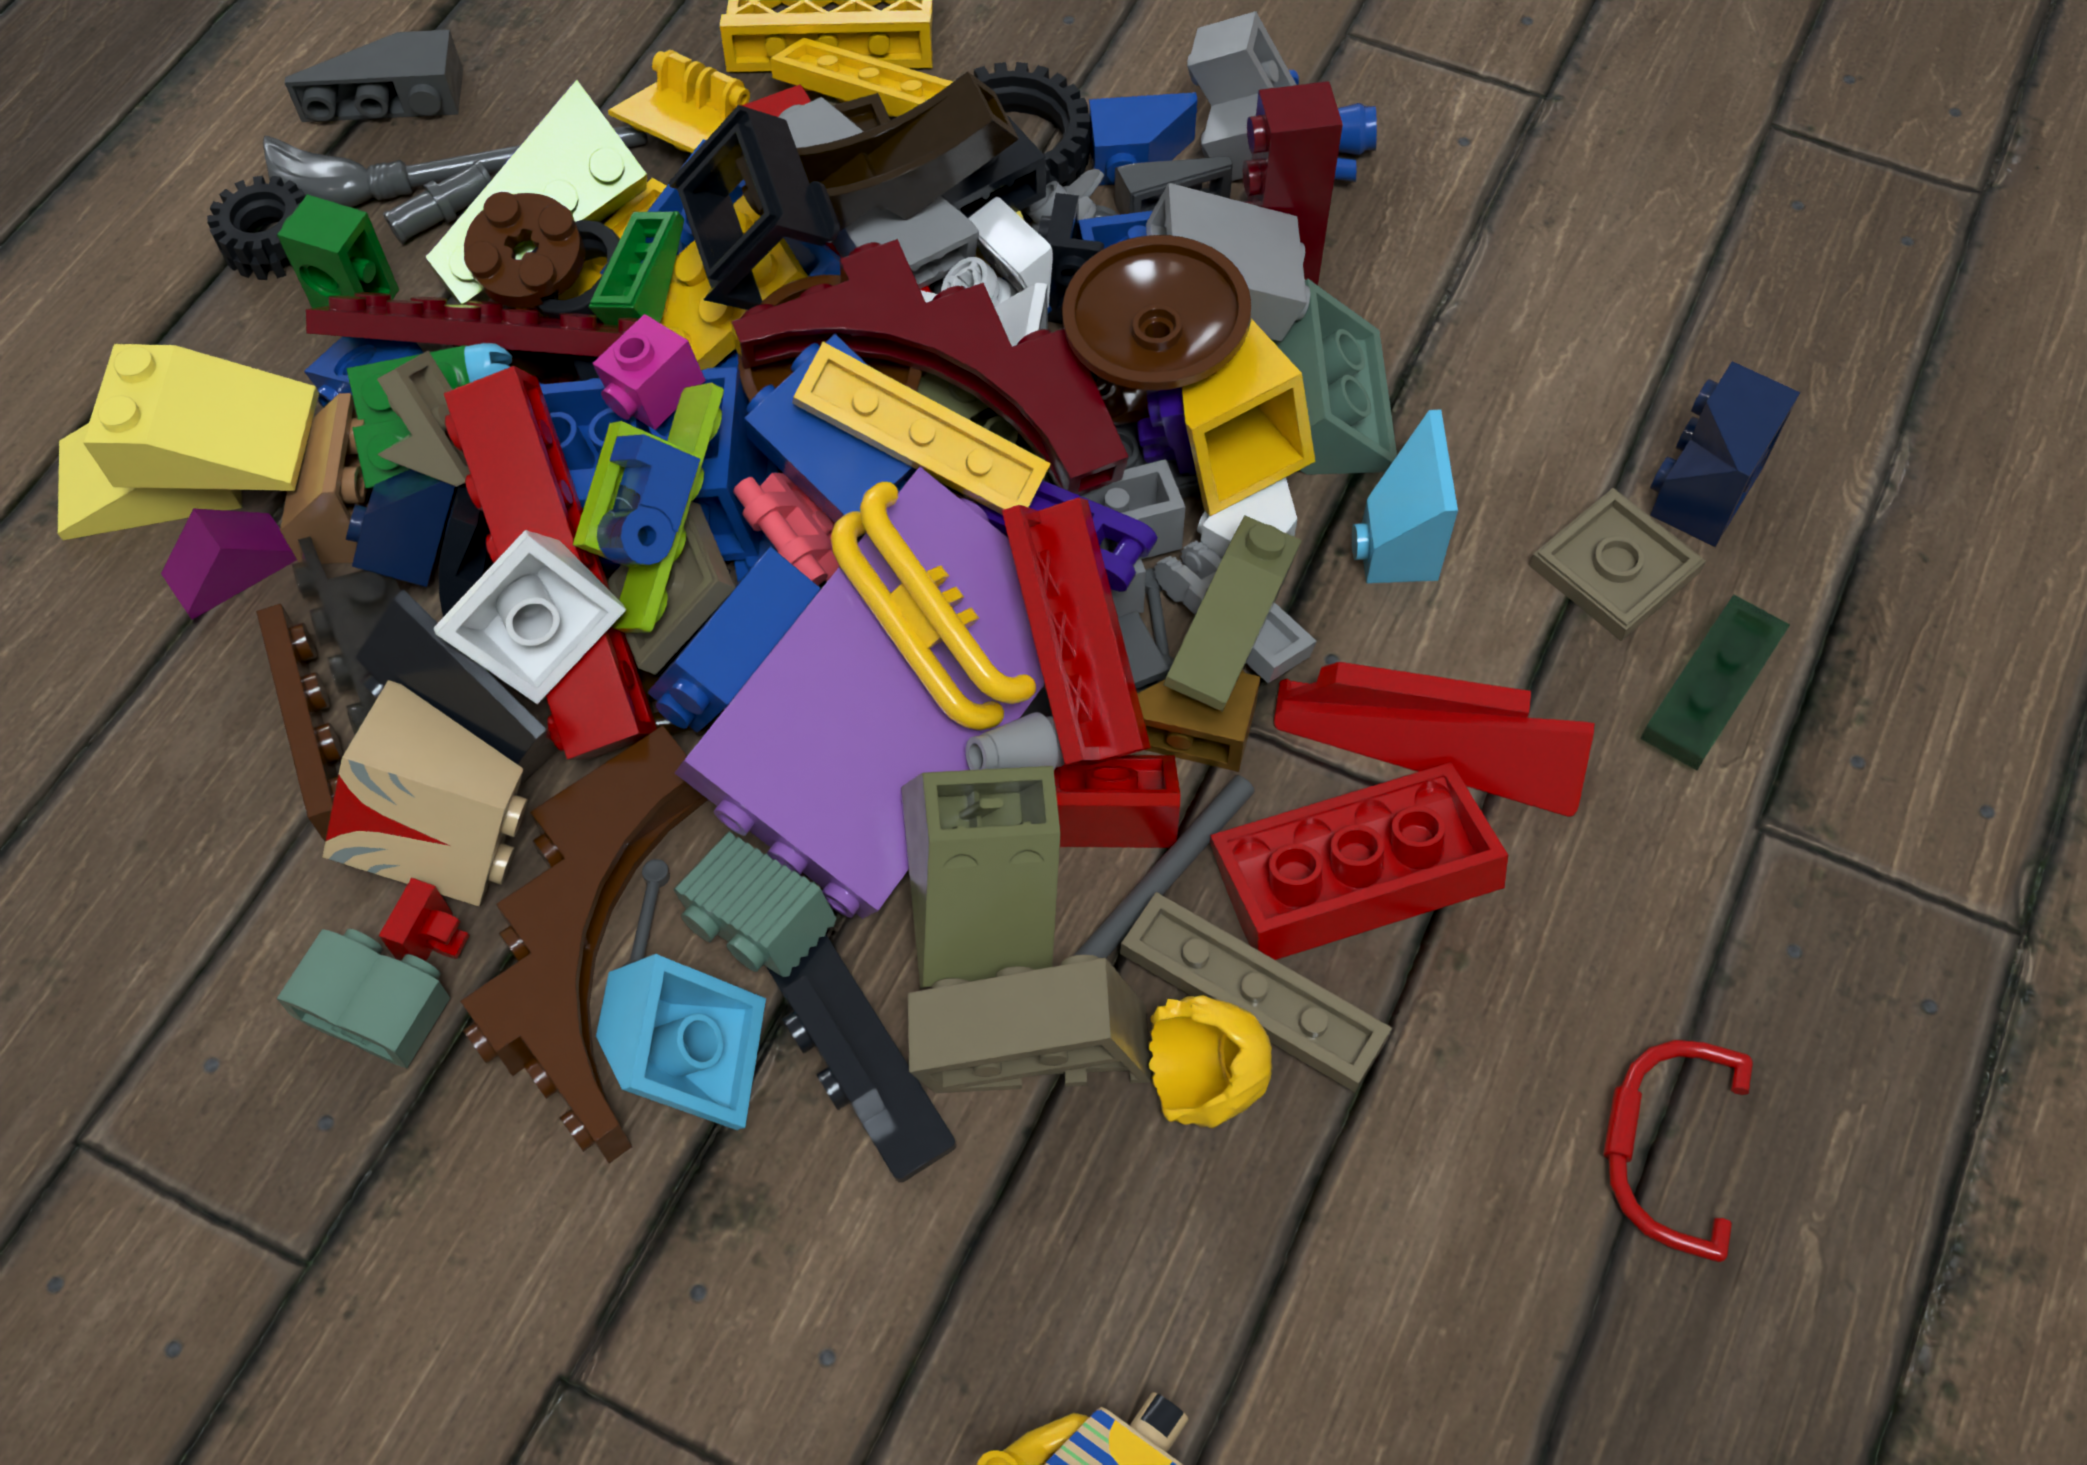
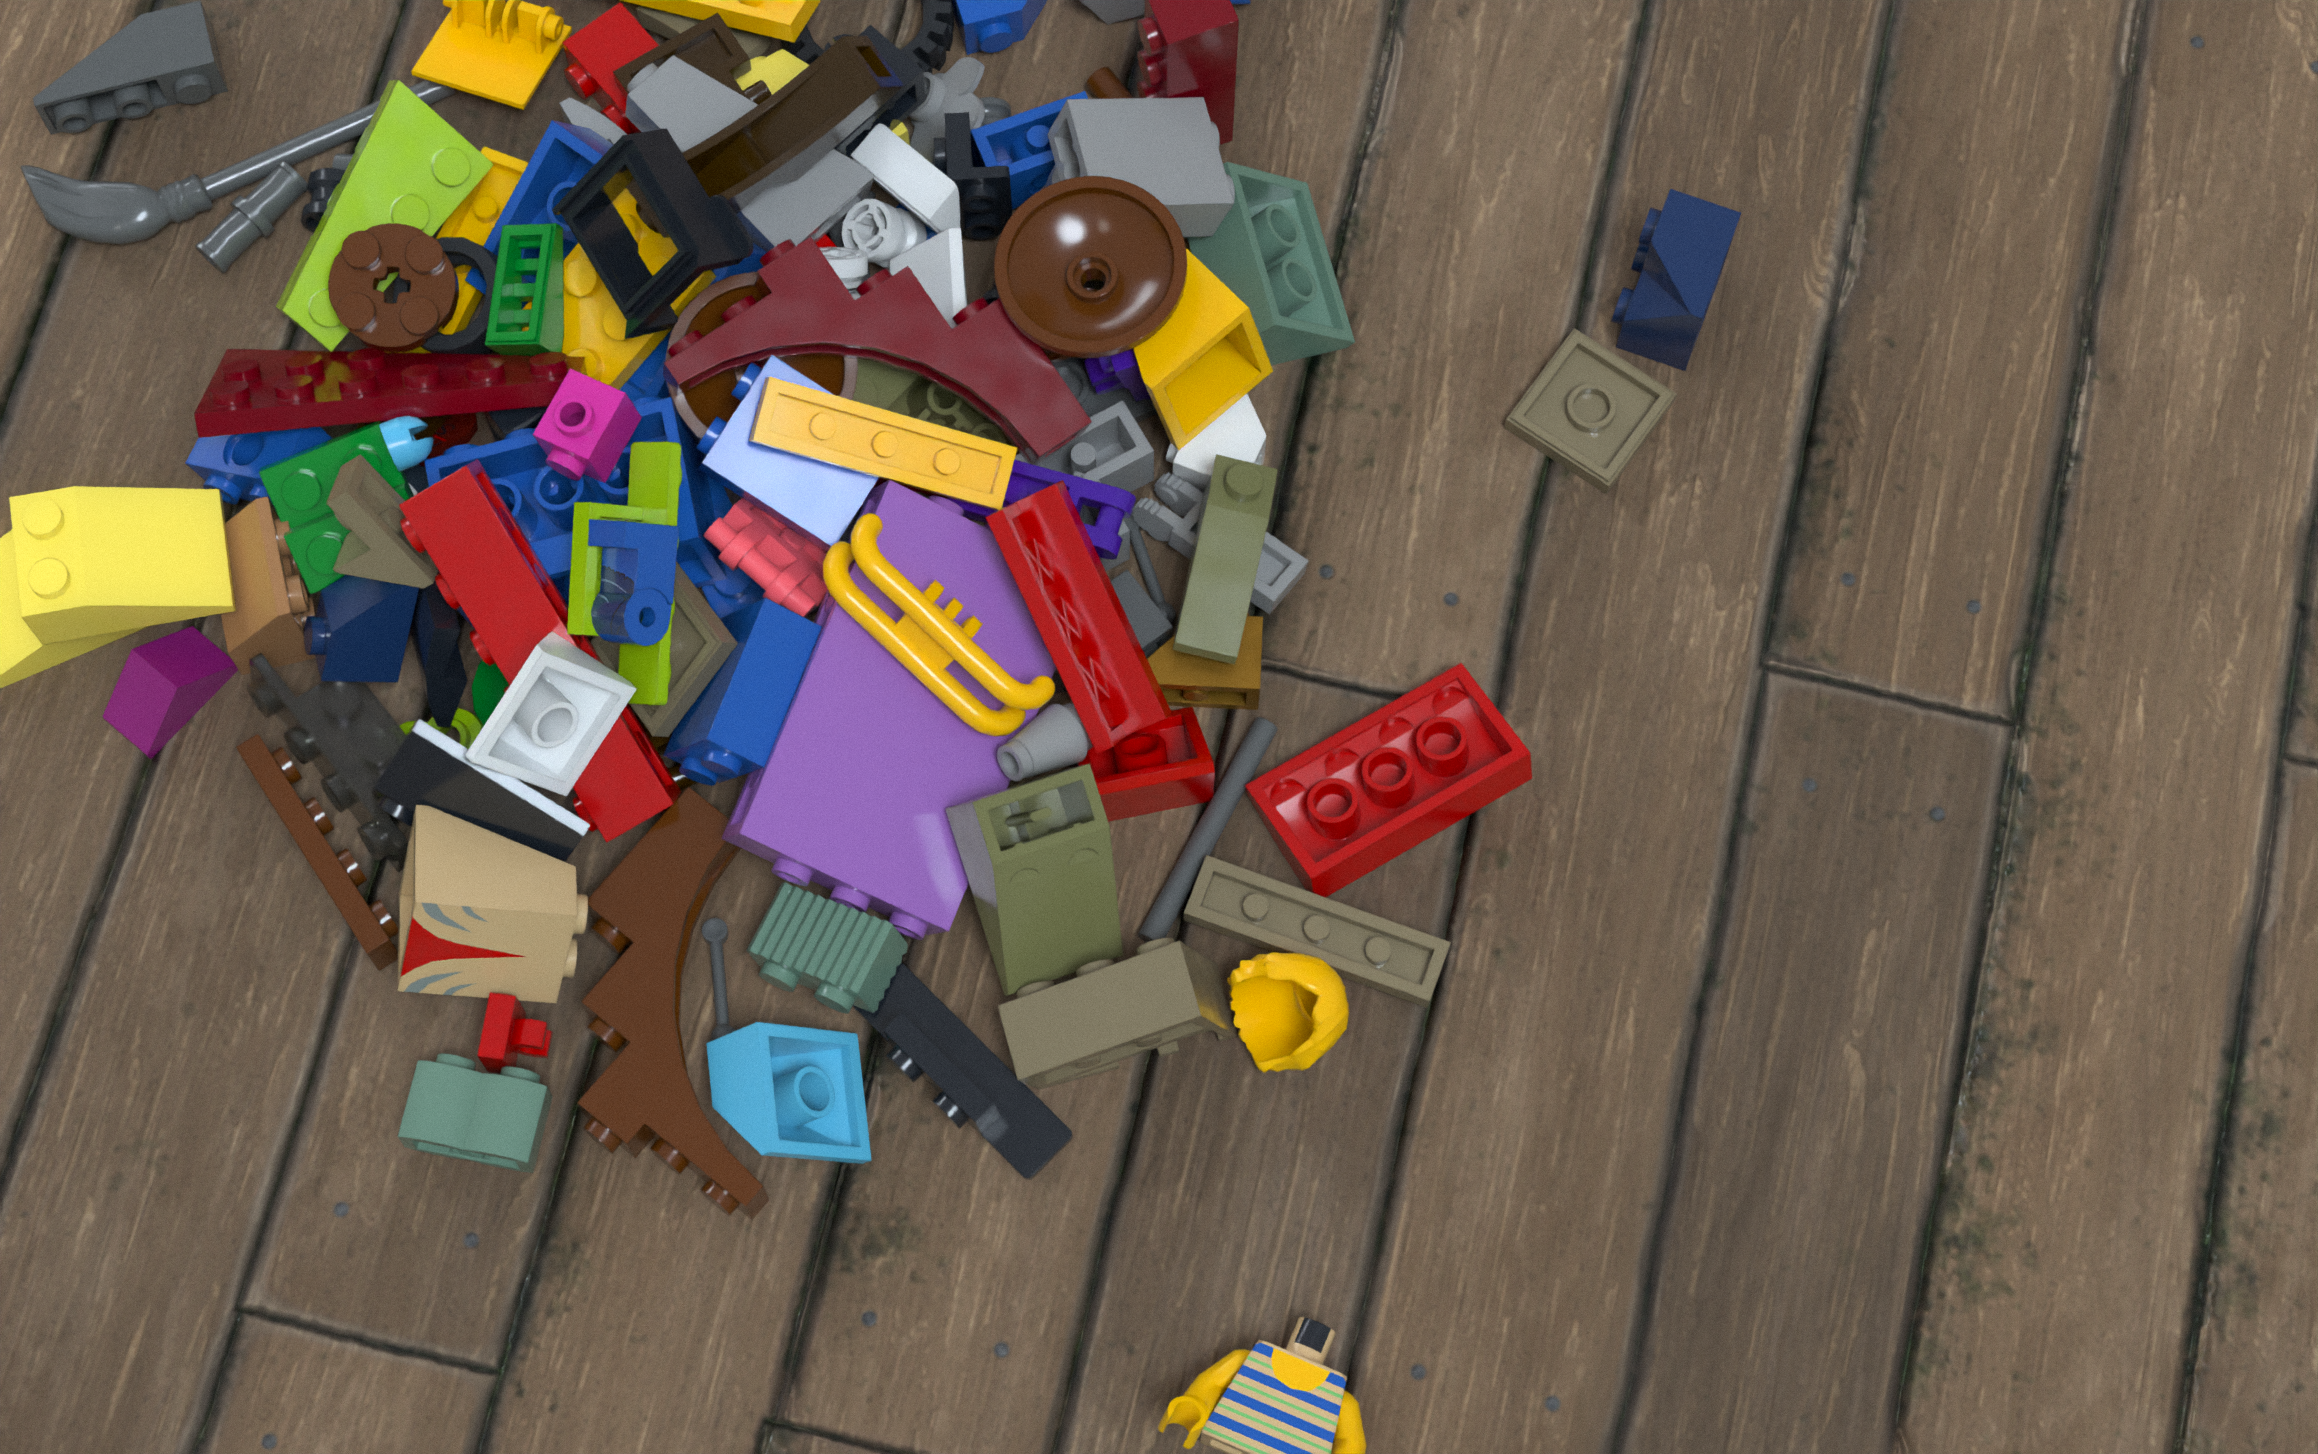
camera: 15 degrees left, 10 degrees up
(246, 211) = (57, 256): black tyre -> none
(335, 251) = (176, 322): green brick -> none
(1142, 184) = (1048, 58): dark grey slope -> none
(1410, 511) = (1377, 405): medium azure slope -> none
(1441, 720) = (1442, 625): red wedge -> none
(1622, 1135) = (1675, 991): red piece -> none
(1714, 682) = (1701, 525): clear green plate -> none

